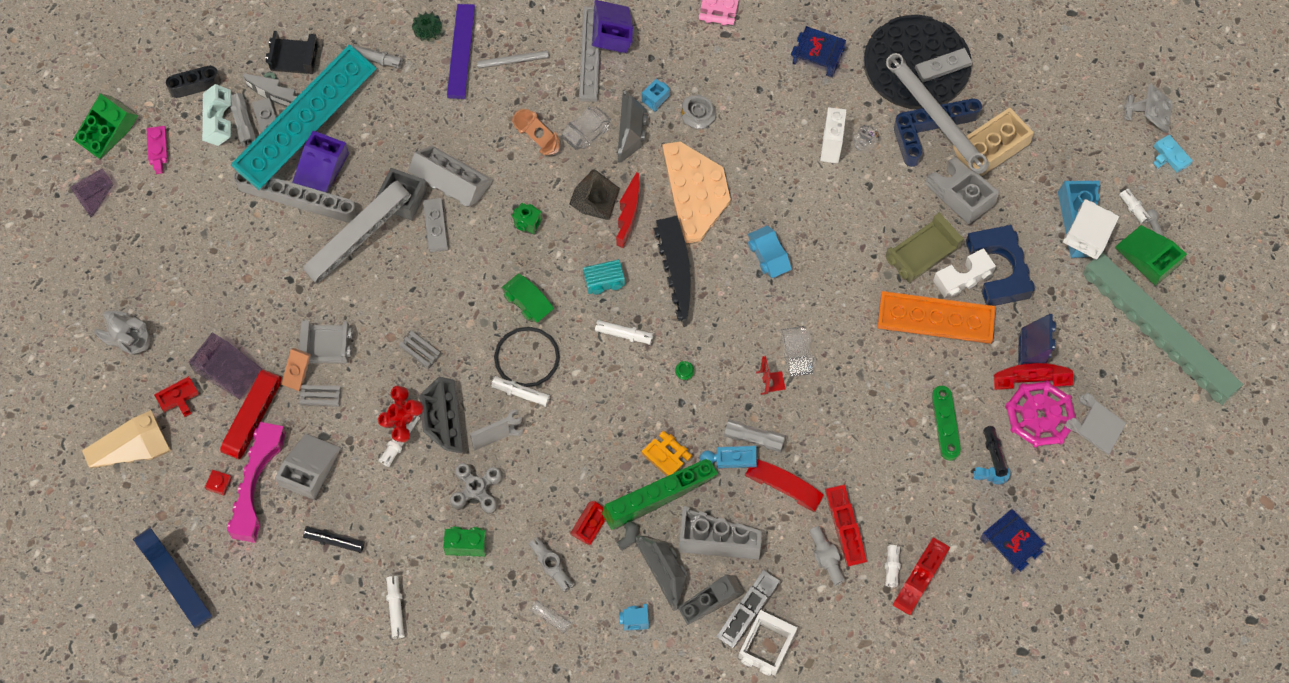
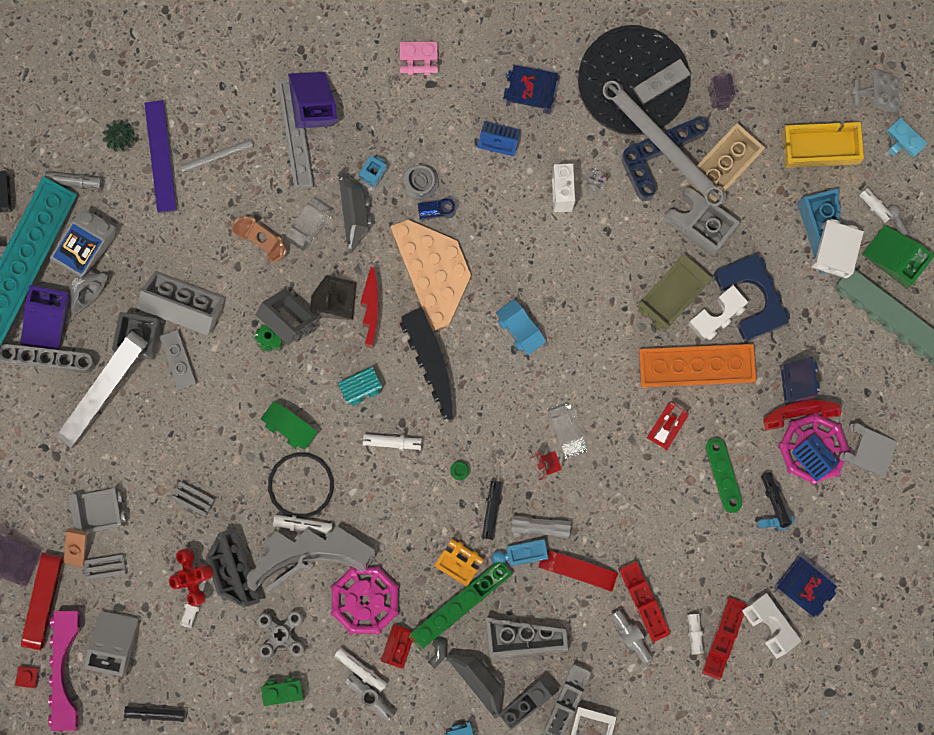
camera: 15 degrees left, 15 degrees up
(364, 148) = (85, 290): none -> light grey hat
(372, 106) = (83, 243): none -> slope
(546, 200) = (278, 324): none -> dark grey window
(548, 415) = (282, 552): none -> light grey arch
(553, 543) = (361, 670): none -> white pin
(563, 483) = (364, 611): none -> dark pink plate
(705, 136) = (433, 209): none -> clear blue piece
(712, 403) = (491, 511): none -> black pin
(779, 88) = (499, 138): none -> blue panel
(891, 373) = (661, 436): none -> red piece
(967, 556) = (782, 637): none -> white arch
(999, 80) = (721, 91): none -> clear purple brick
(1040, 418) = (815, 457): none -> blue panel
(1087, 143) = (822, 145): none -> yellow piece

